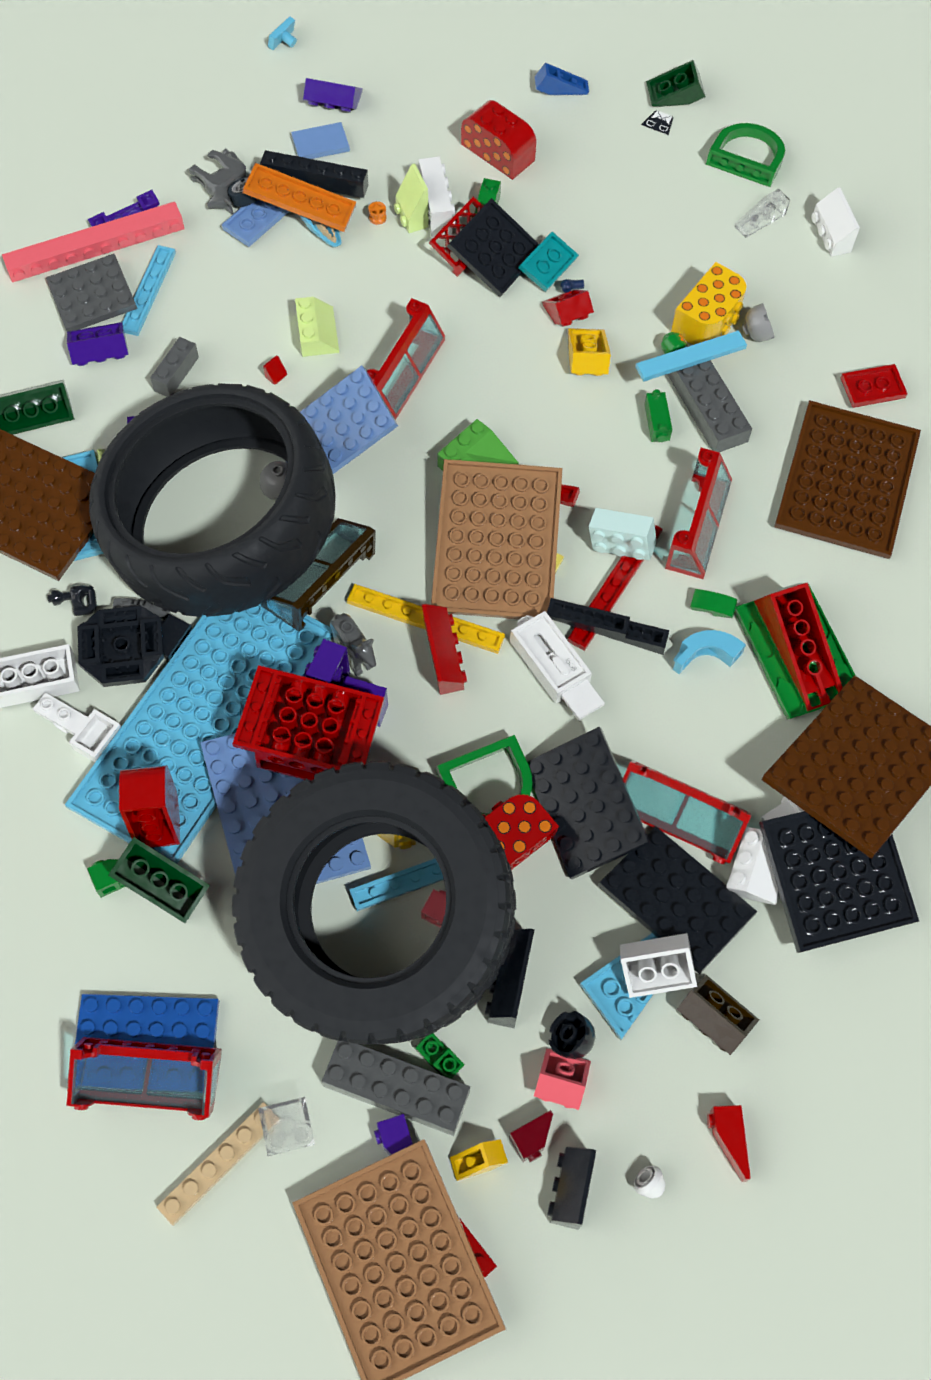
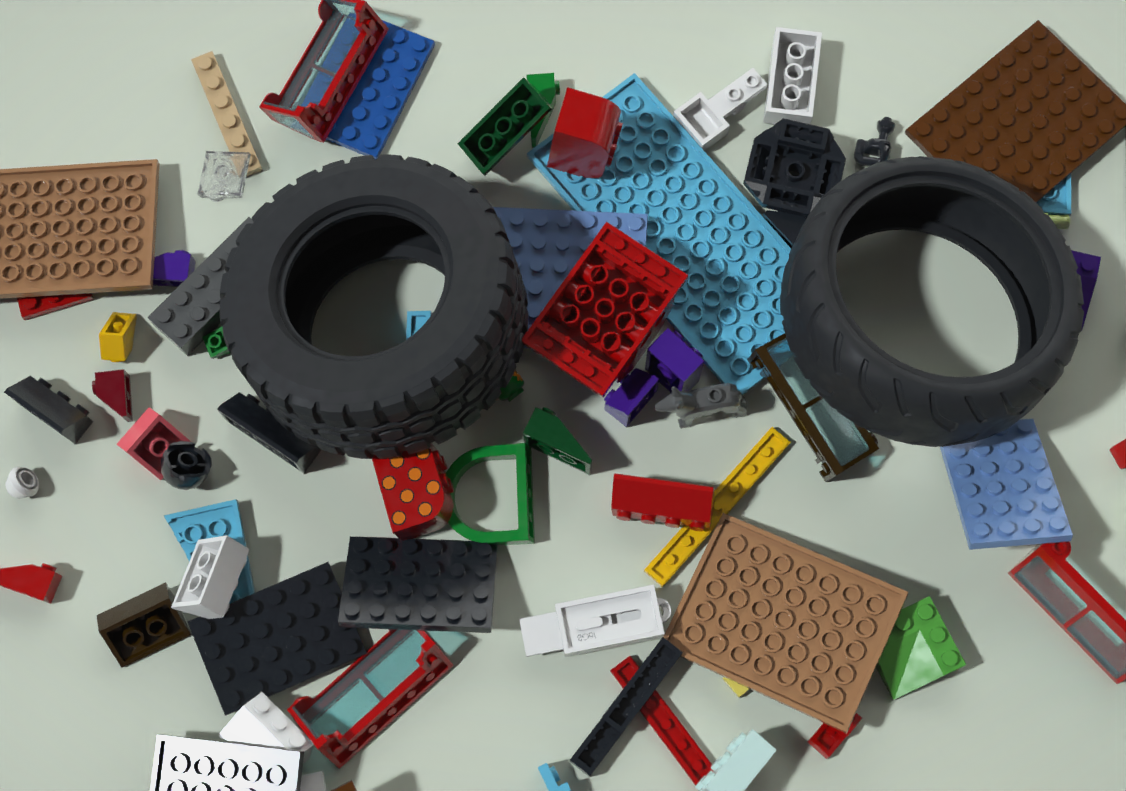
camera: 115 degrees right, 10 degrees up
(423, 742) = (551, 437): none -> dark green slope

